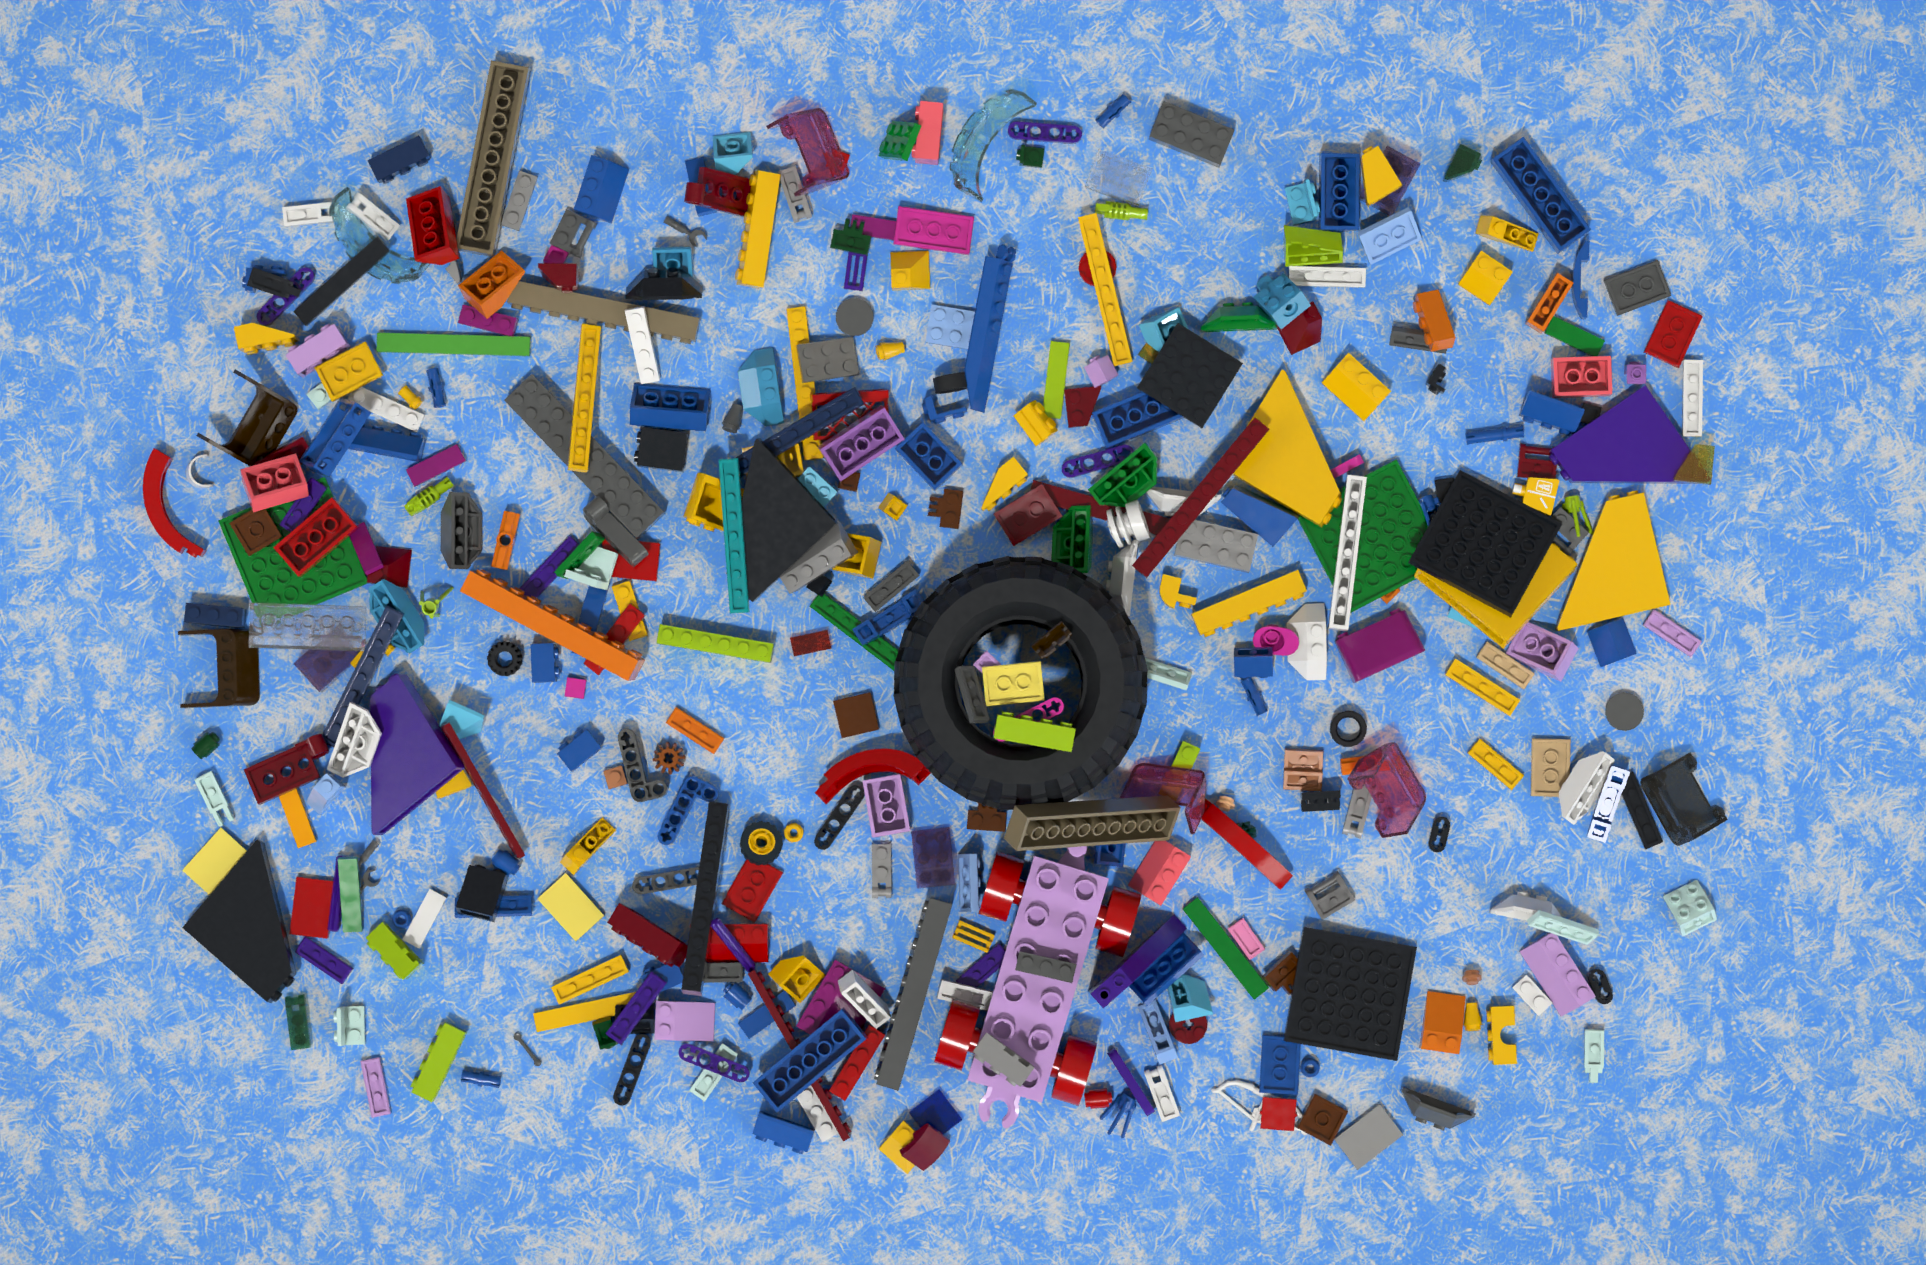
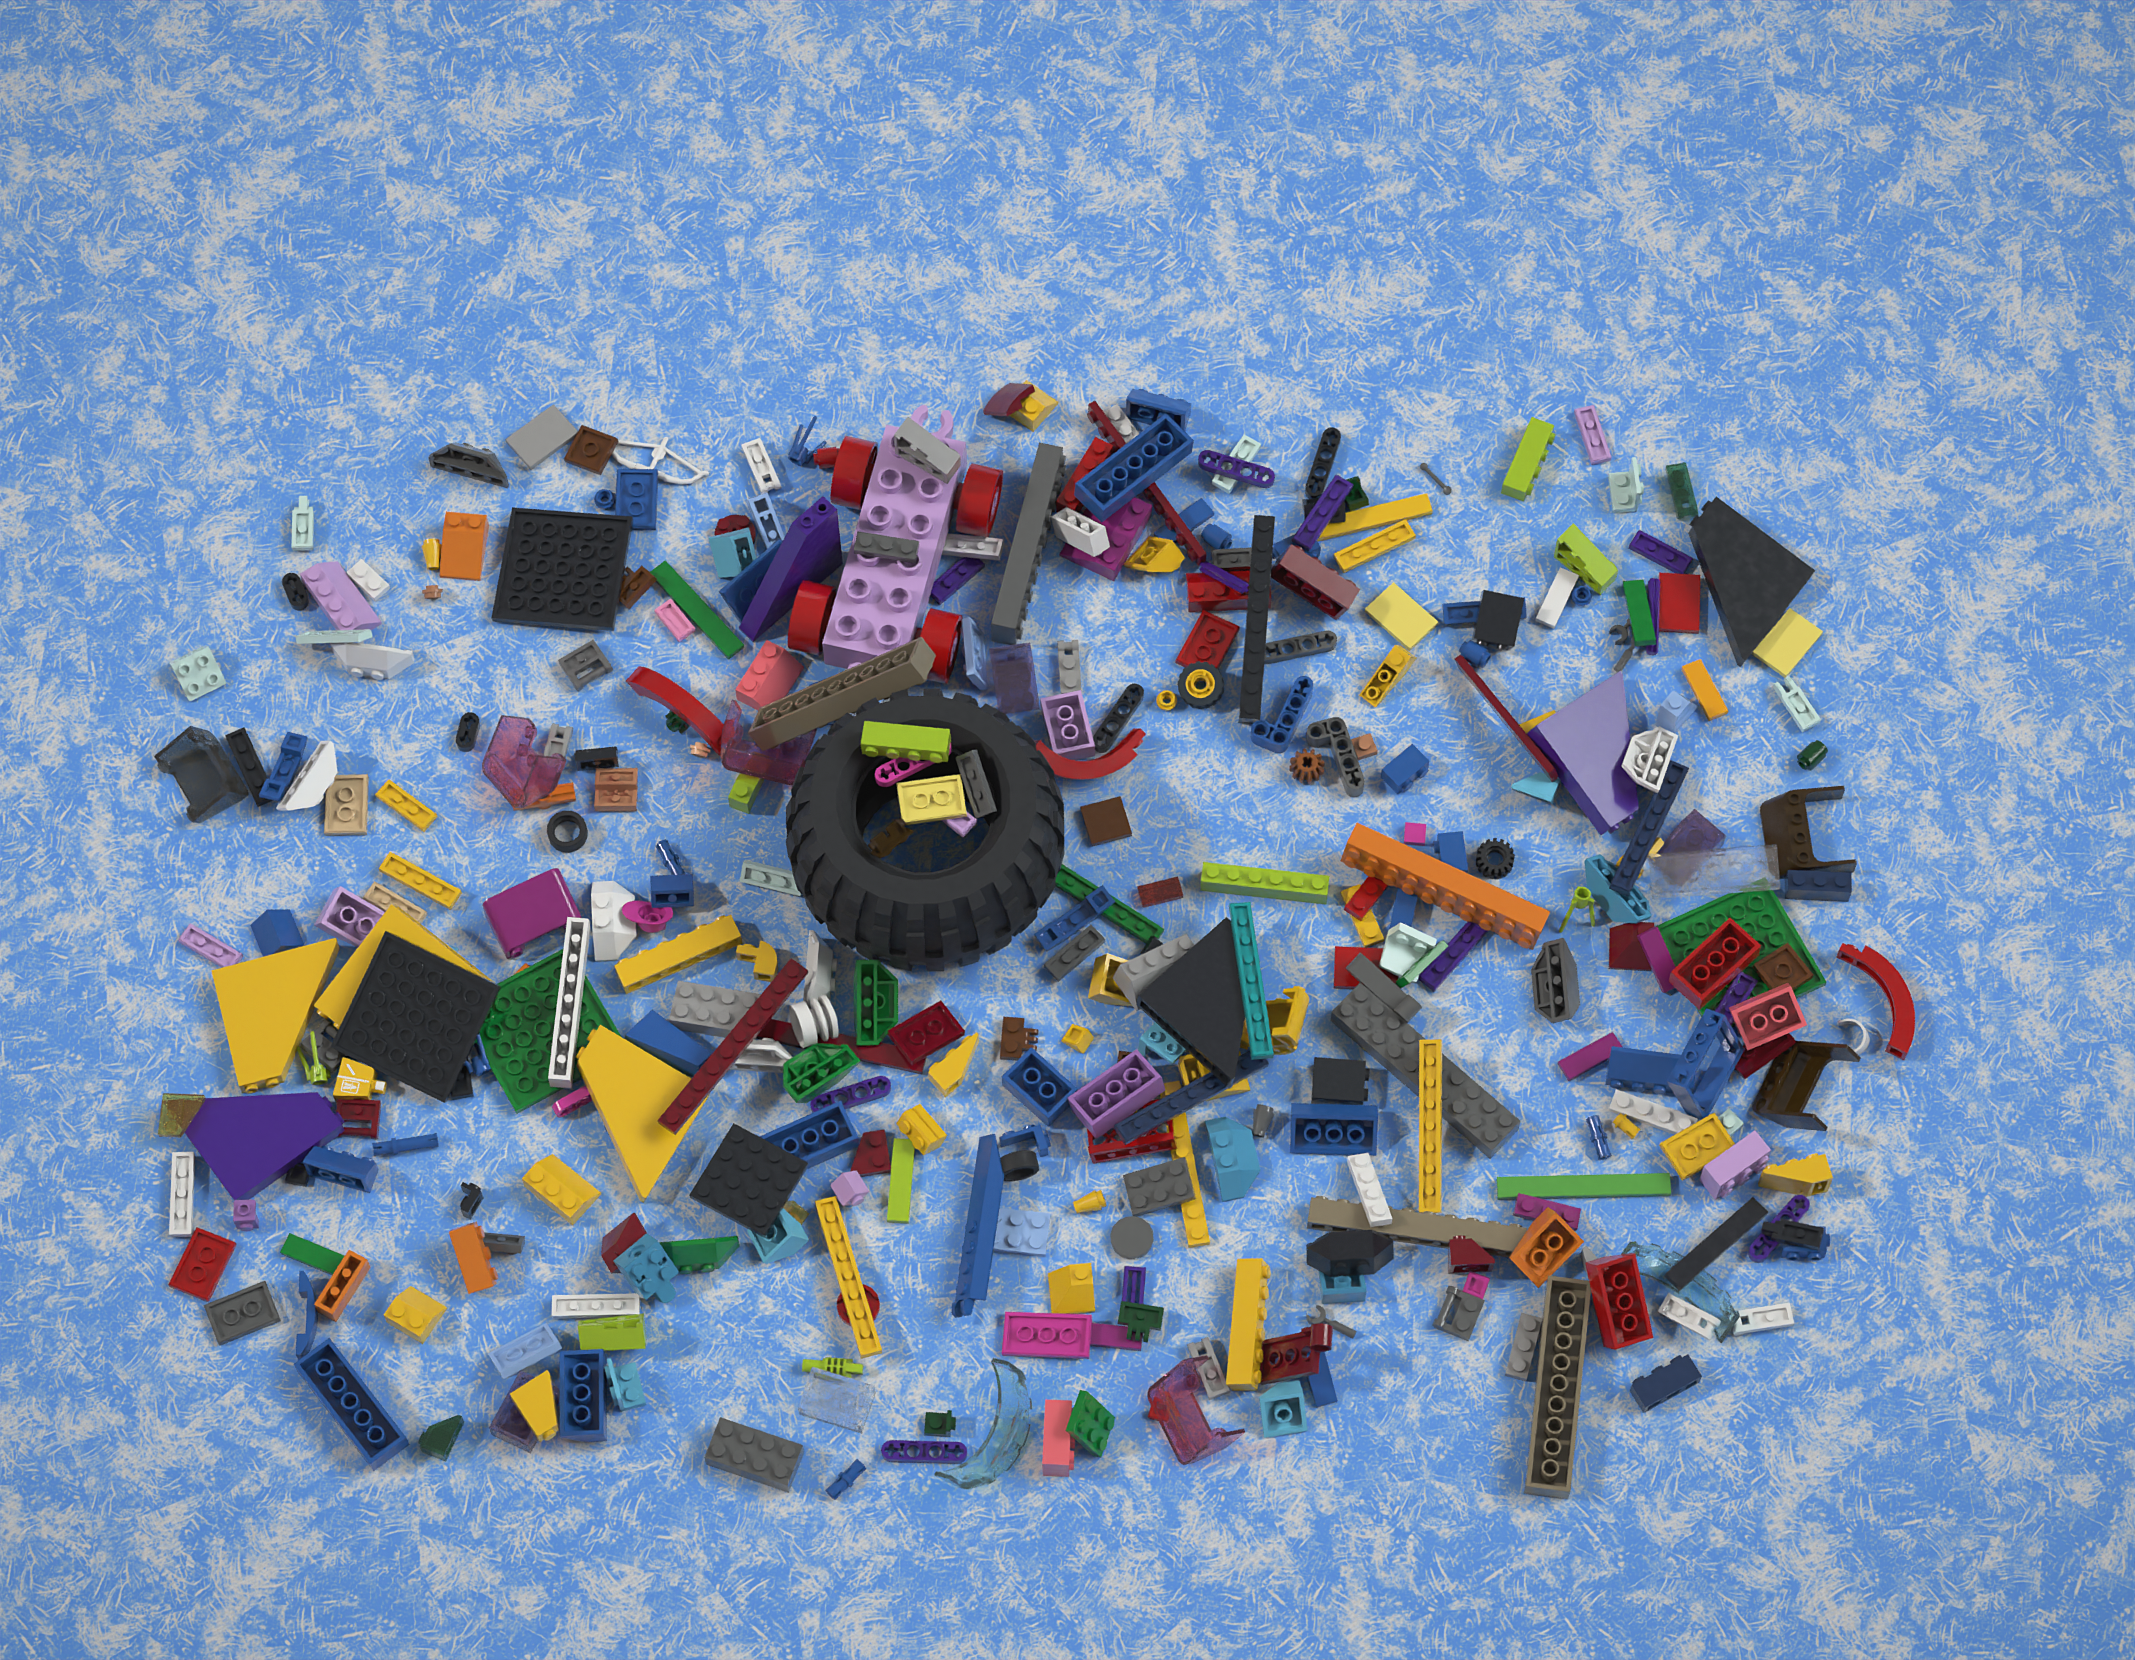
camera: 170 degrees right, 20 degrees down
(310, 749) = (1697, 755): dark red hinge -> none
(427, 497) = (1595, 1021): lime hinge -> none
(481, 1078) = (1482, 446): blue pin -> none
(503, 553) = (1504, 990): orange piece -> none
(601, 189) = (1430, 1361): blue slope -> none
(684, 1021) = (1279, 501): lavender slope -> none
(695, 730) = (1280, 797): orange tile -> none
(936, 1112) = (999, 436): clear blue tile -> none
(958, 930) = (954, 596): yellow tile -> none
(1131, 1082) = (793, 474): dark purple beam -> none
(1278, 1113) = (637, 452): red piece -> none
(1499, 1018) = (402, 553): yellow arch -> none
(1506, 233) = (391, 1363): yellow slope -> none
(1581, 377) = (306, 1207): coral brick -> none
(1624, 711) = (264, 865): dark grey tile -> none

